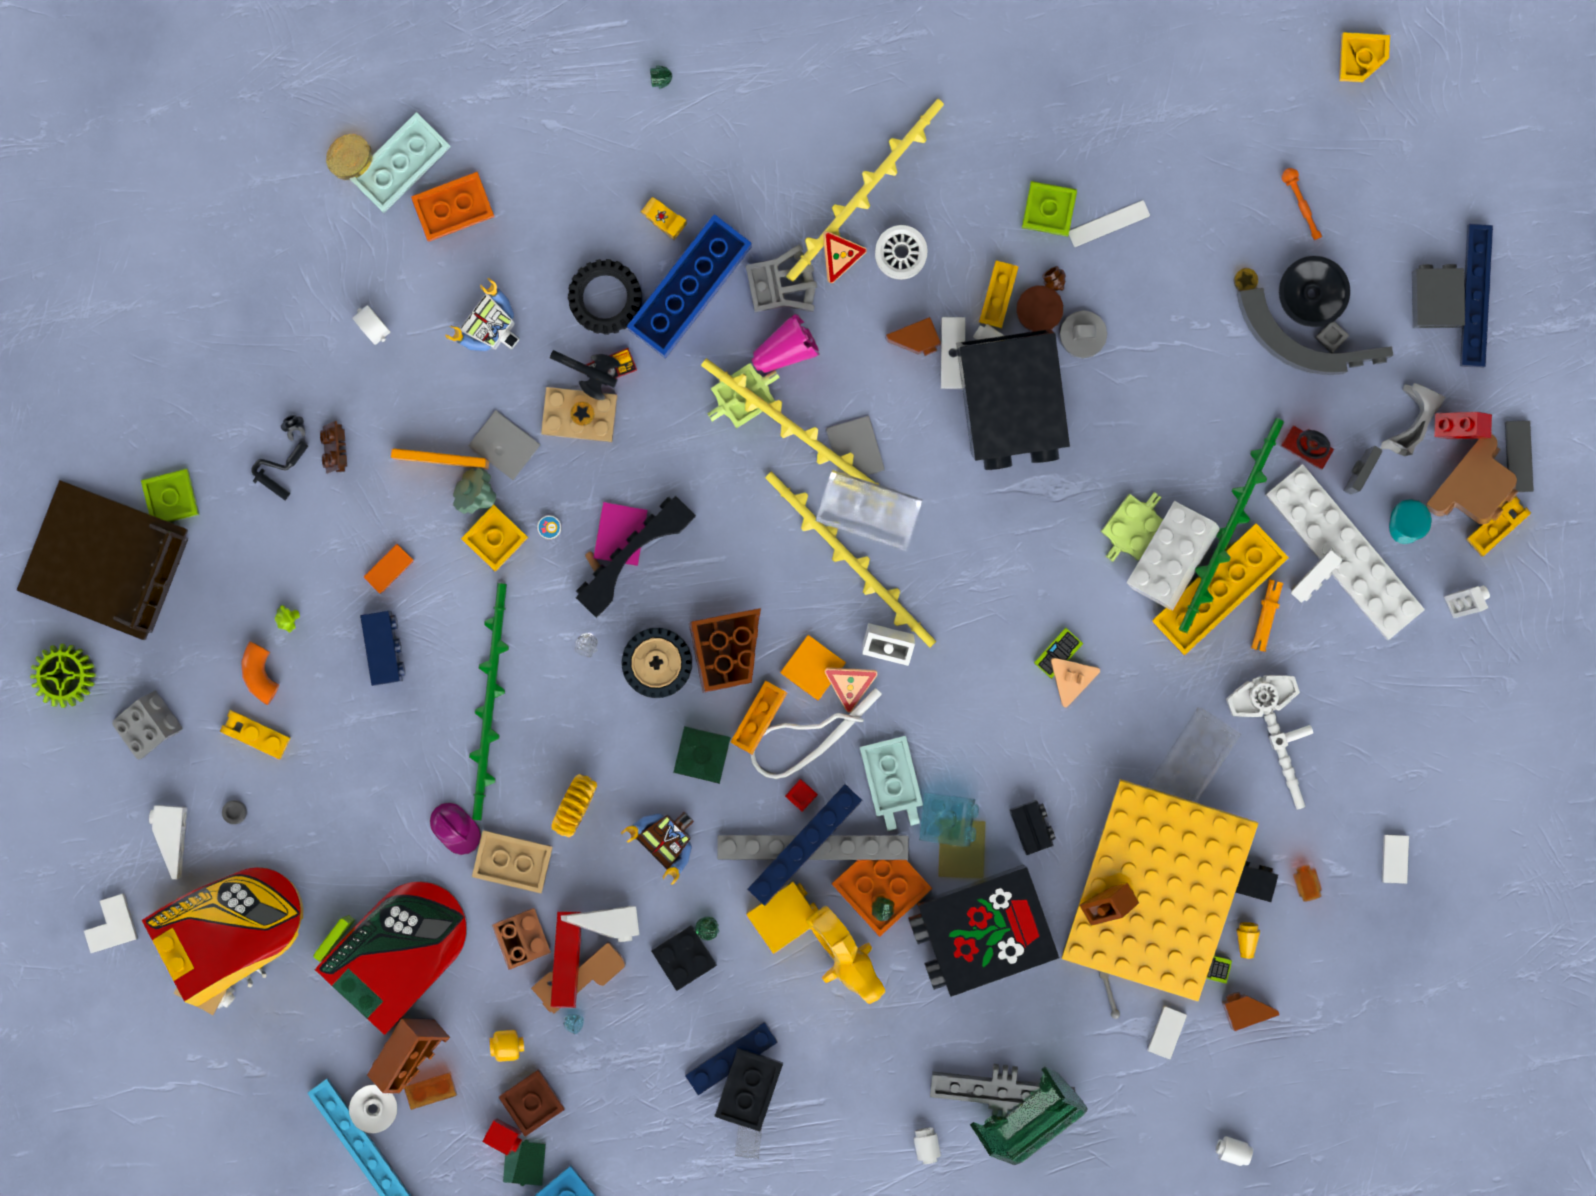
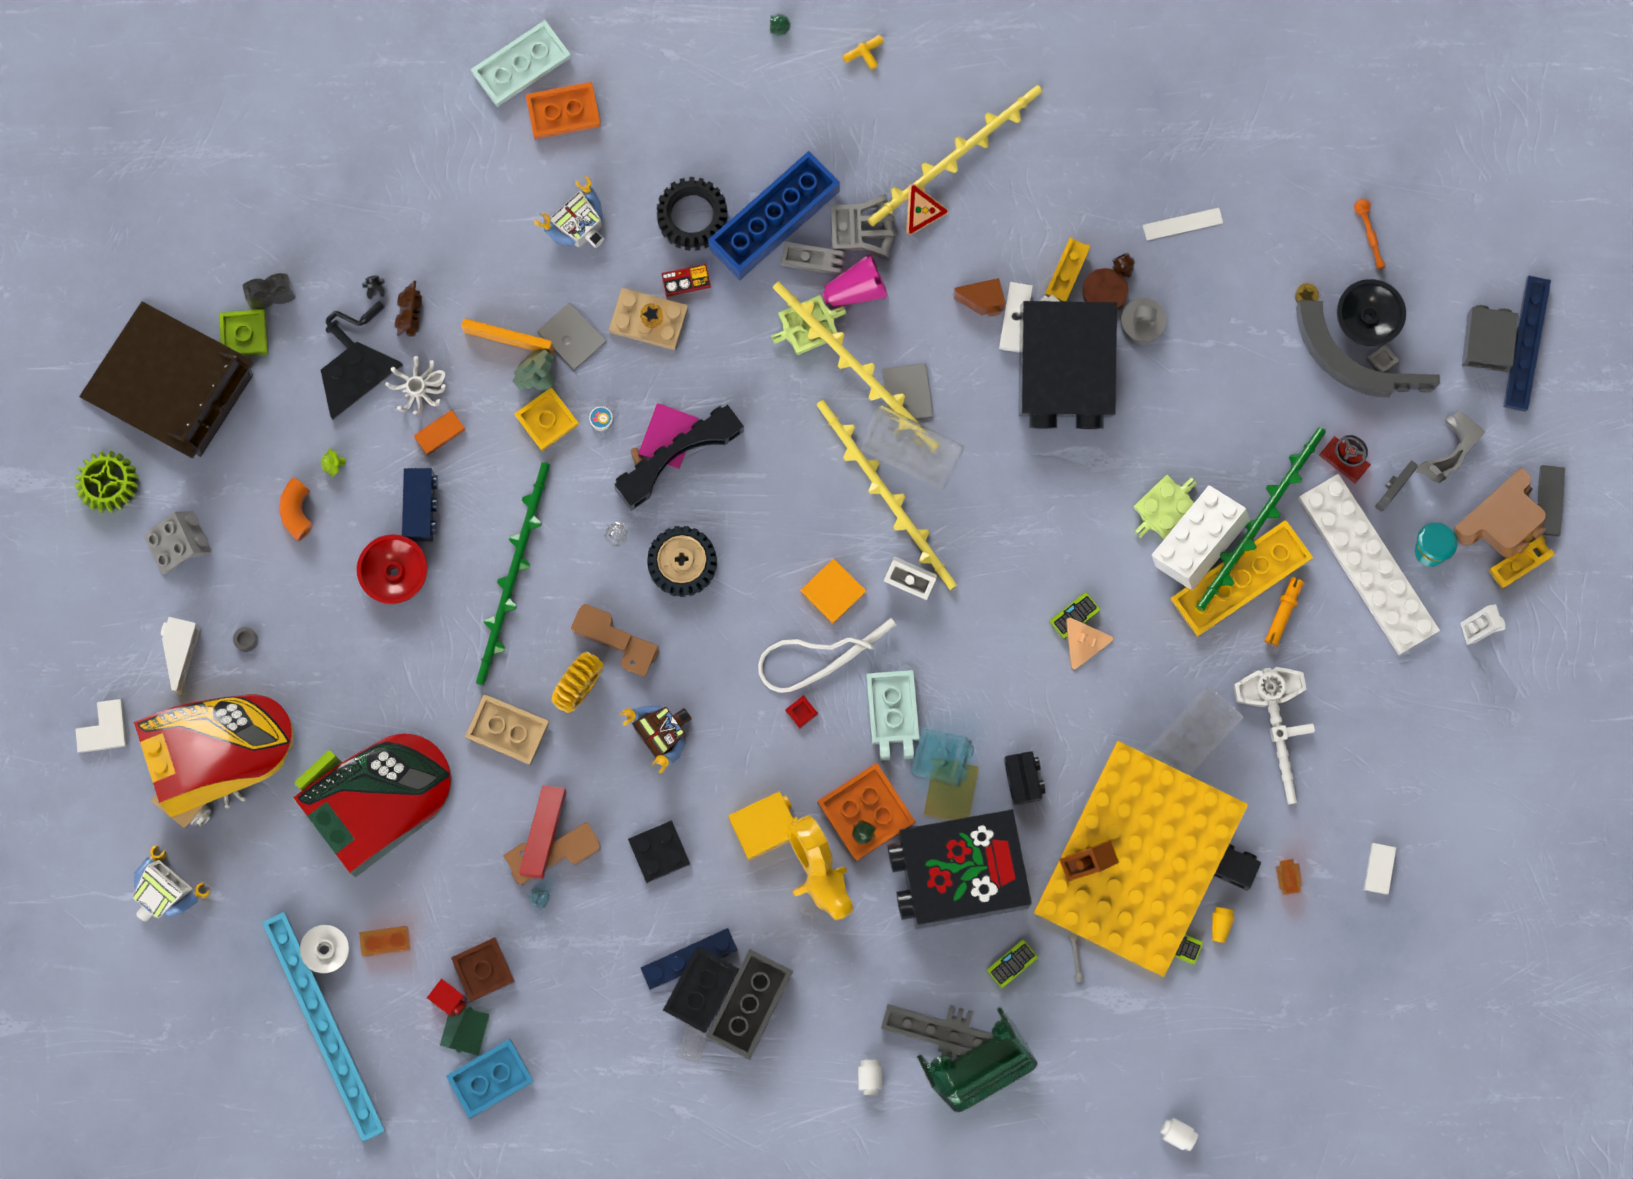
camera: 10 degrees right, 10 degrees down
(181, 455) = (264, 292): none -> clear smoke brick
(201, 1077) = (161, 890): none -> torso
(256, 735) = (281, 568): yellow plate -> none
(291, 524) = (354, 375): none -> black wing
(349, 156) = (474, 50): clear yellow tile -> none
(351, 725) = (381, 558): none -> red dish
(358, 525) = (417, 386): none -> white animal
(371, 325) = (466, 203): white piece -> none
(404, 1052) = (367, 896): dark orange wedge -> none
(455, 828) = (457, 690): magenta piece -> none
(506, 1045) = (468, 907): yellow head -> none
(521, 938) = (501, 805): nougat brick -> none
(583, 743) = (597, 626): none -> medium nougat piece
(598, 374) = (672, 283): black piece -> none
(612, 922) = (590, 802): white slope -> none
(664, 218) = (761, 152): yellow leg -> none
(702, 754) = (711, 655): clear green brick -> none
(707, 928) = (687, 825): clear green plate -> none
(725, 649) = (750, 557): dark orange wedge -> none
(735, 324) = (812, 258): none -> light grey hinge
(751, 89) = (864, 50): none -> yellow piece
(758, 717) = (772, 629): light orange plate -> none
(798, 1096) = (749, 1004): none -> dark grey brick
(805, 845) = (797, 756): dark blue plate -> none
(834, 848) = (804, 762): light grey plate -> none
(850, 684) = (867, 611): piece -> none
(889, 270) = (985, 198): white wheel -> none
(1048, 1011) = (1012, 964): none -> tile
(1049, 209) = (1128, 201): lime tile -> none
(1167, 1032) = (1128, 1004): white tile -> none
(1246, 1011) = (1210, 993): dark orange slope -> none
(1316, 575) = (1338, 579): white piece -> none
(1362, 55) = (1445, 107): yellow plate -> none
(1463, 425) = (1499, 458): red brick -> none

